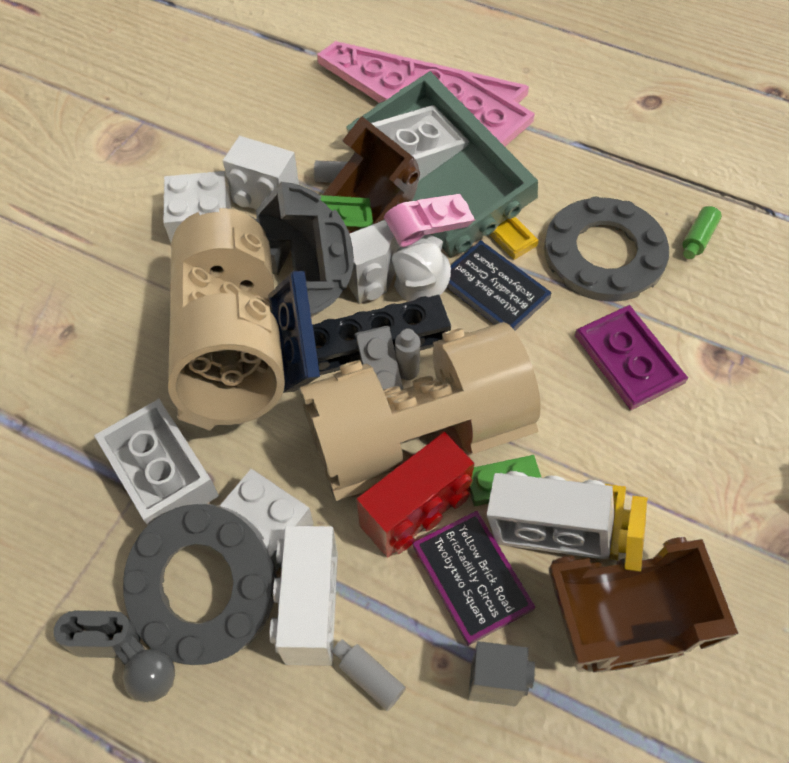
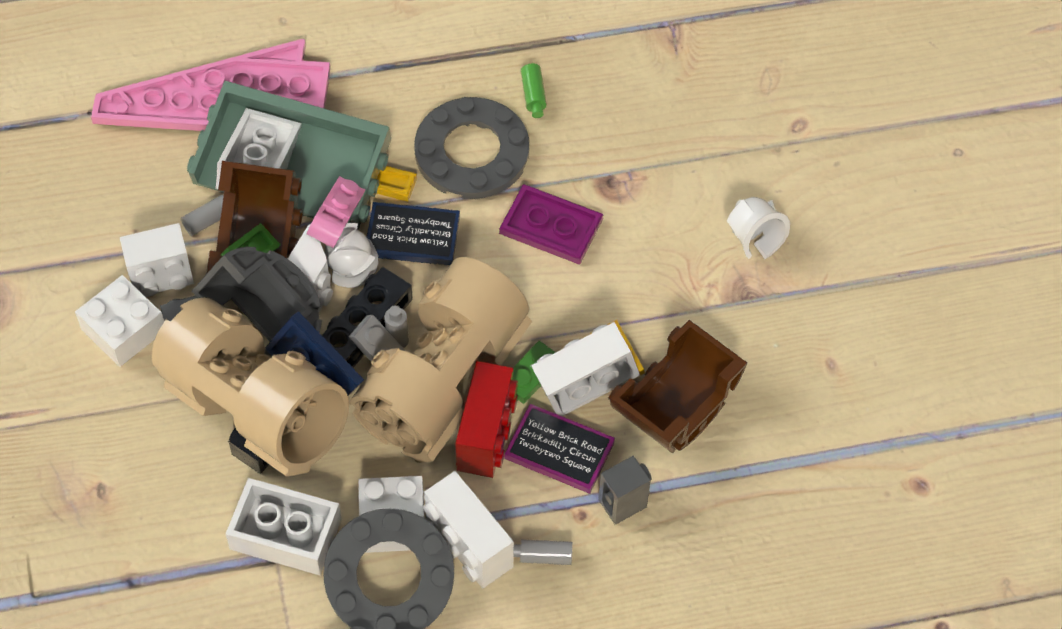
camera: 40 degrees left, 0 degrees up
(633, 533) = (643, 345): yellow plate -> none

